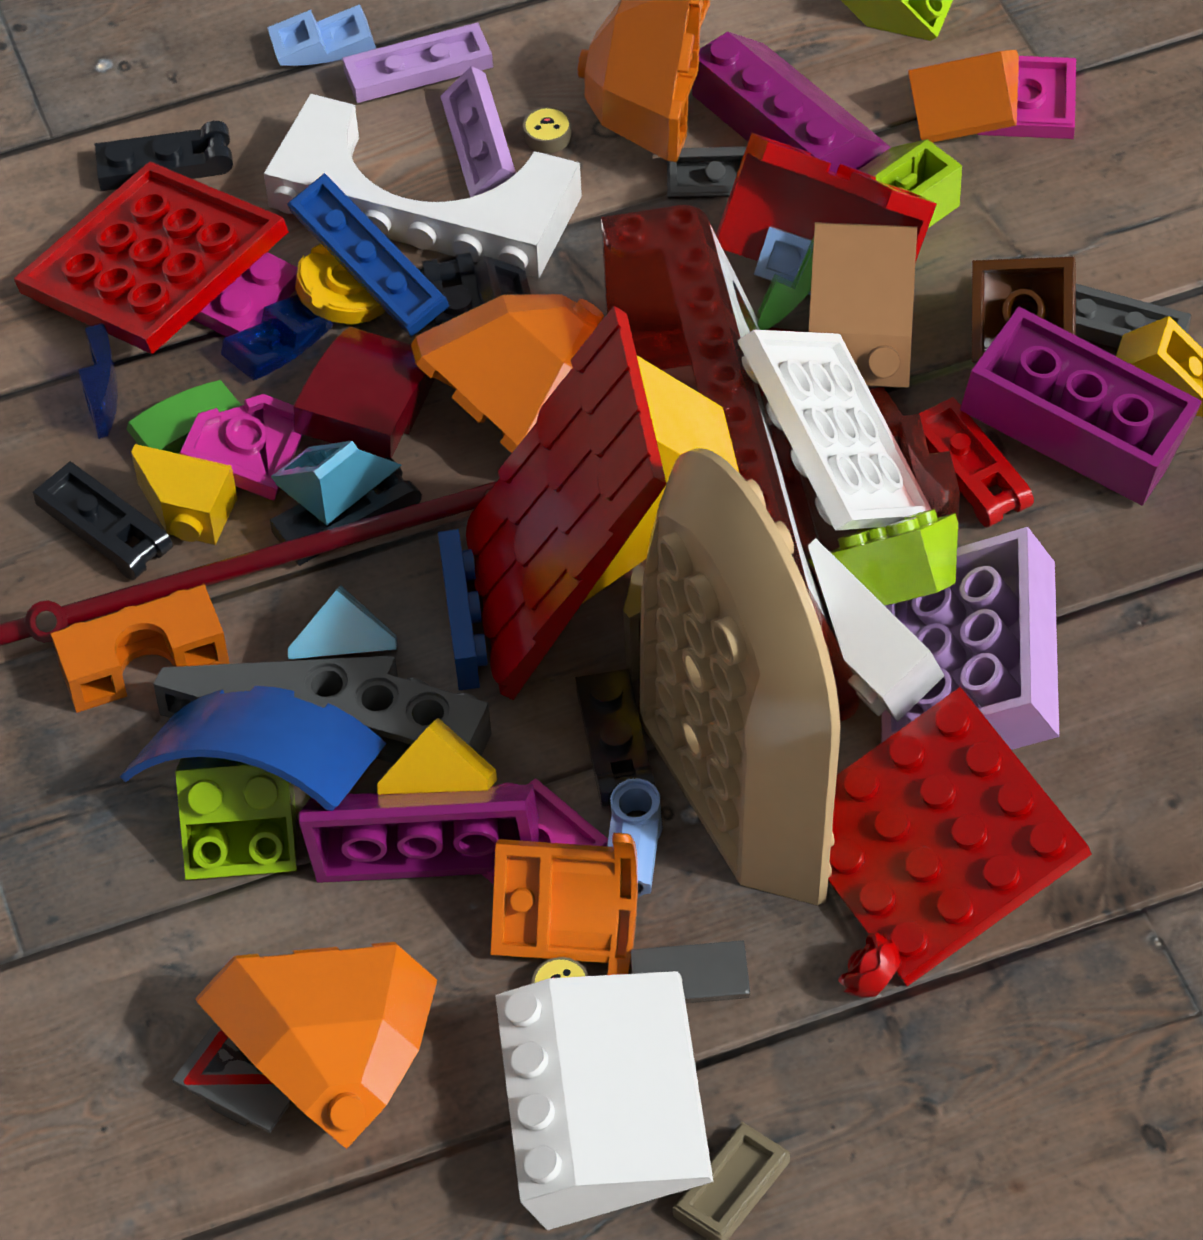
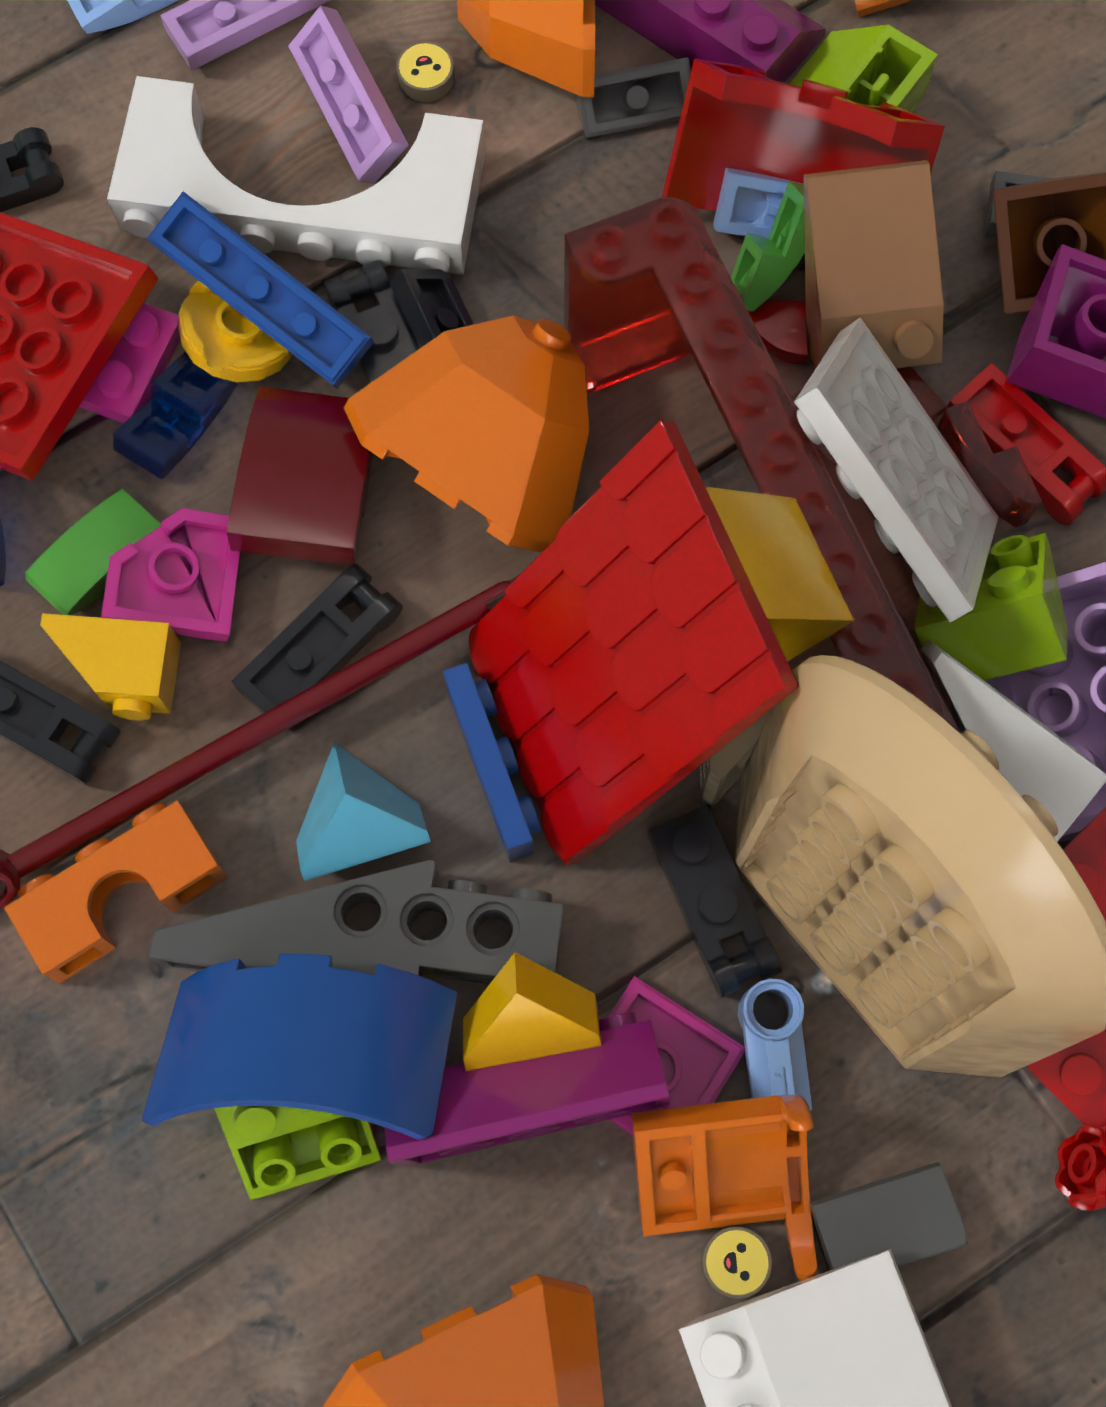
camera: 15 degrees left, 20 degrees up
(332, 477) = (291, 616): medium azure slope -> none

